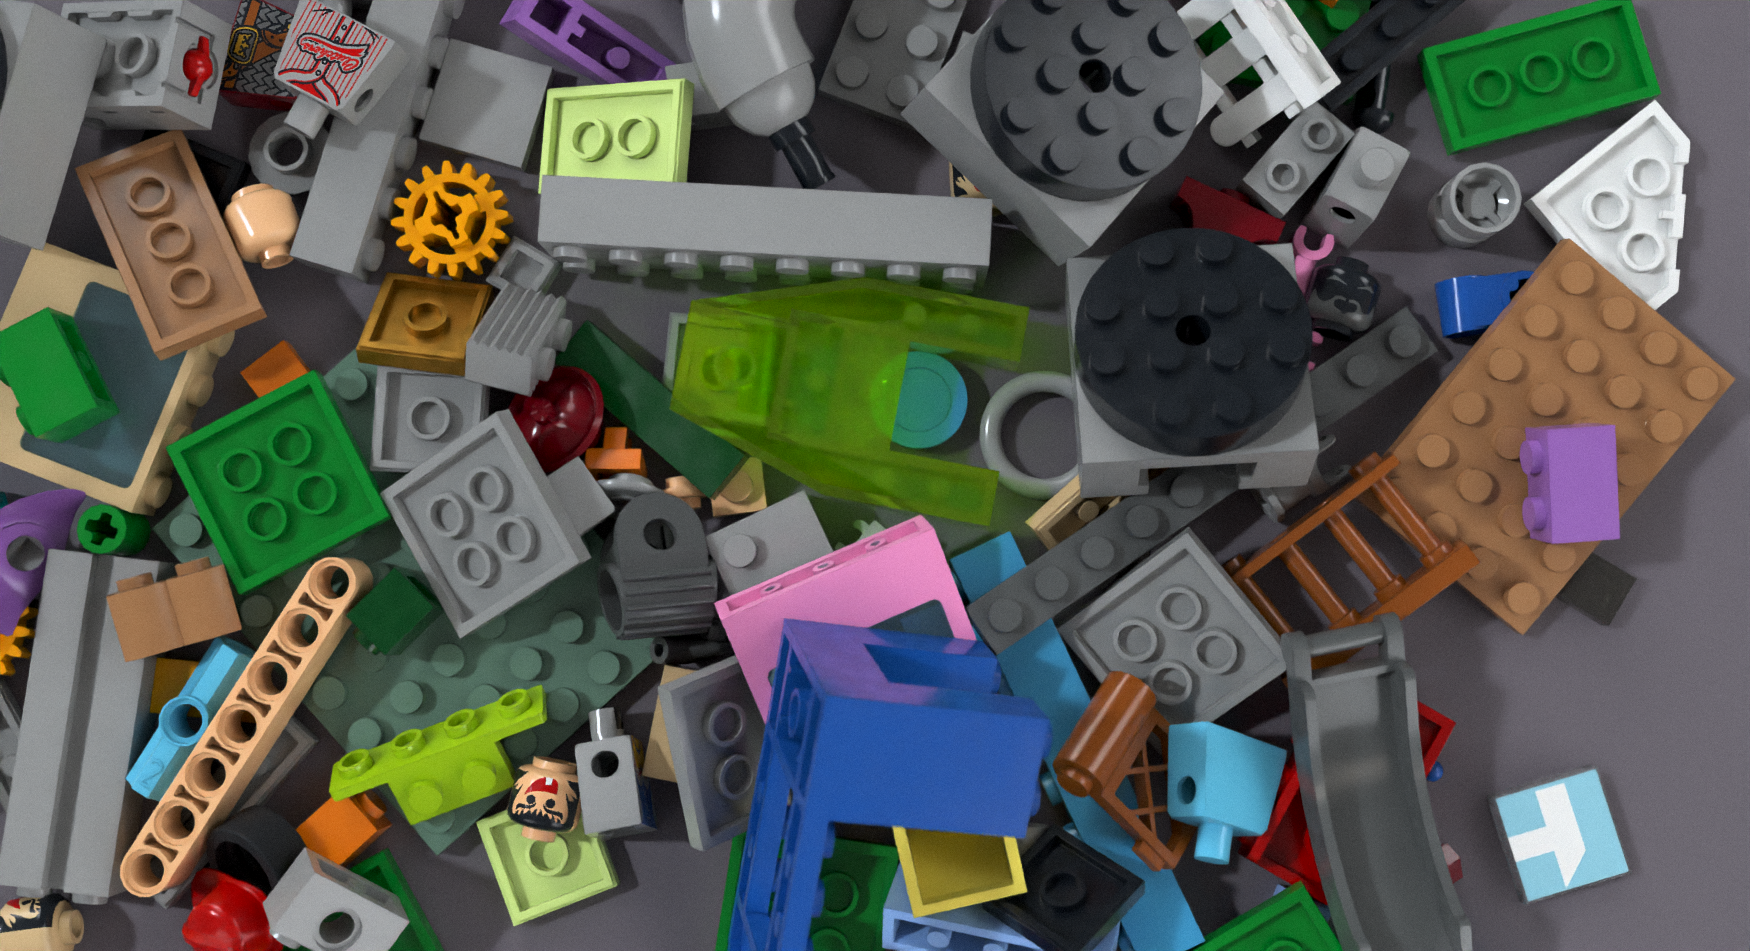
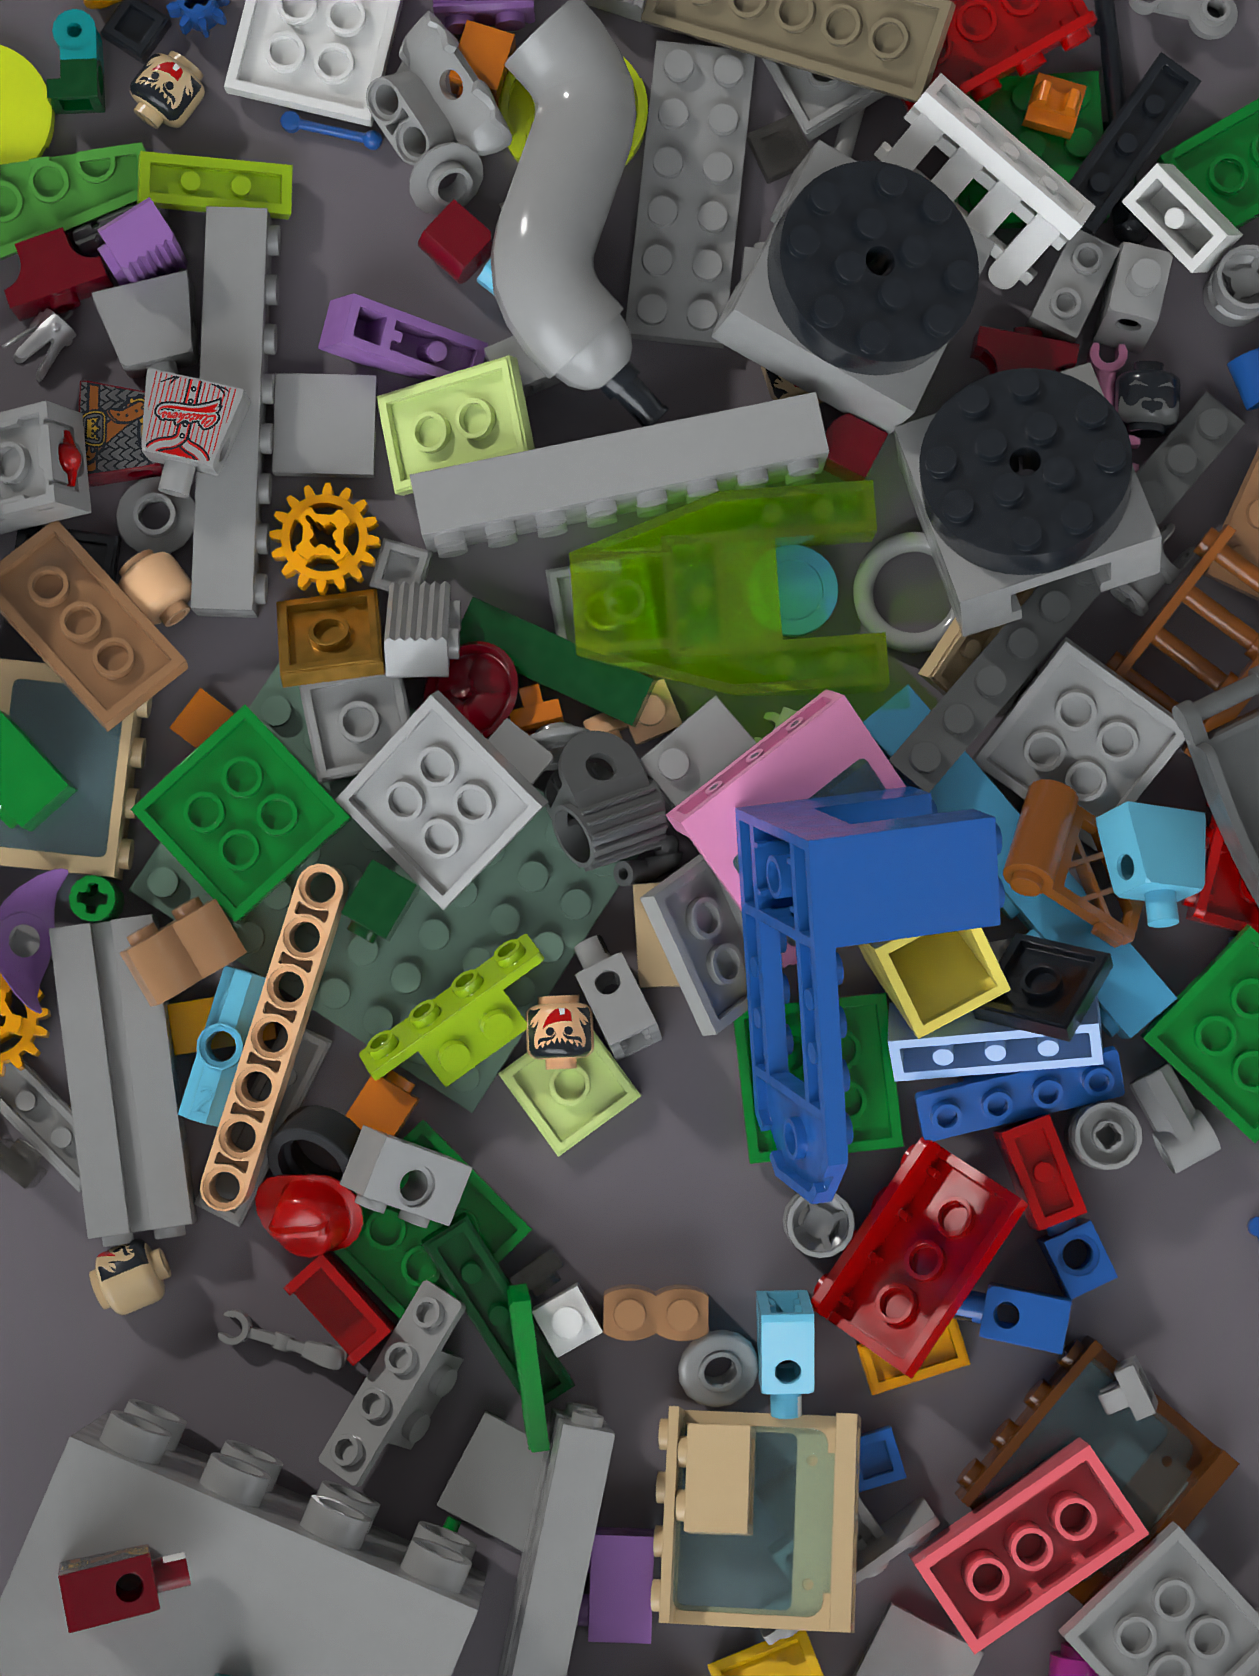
camera: 25 degrees left, 0 degrees up
(1019, 268) = (852, 447): none -> dark red piece
(1429, 118) = (1182, 218): none -> white brick

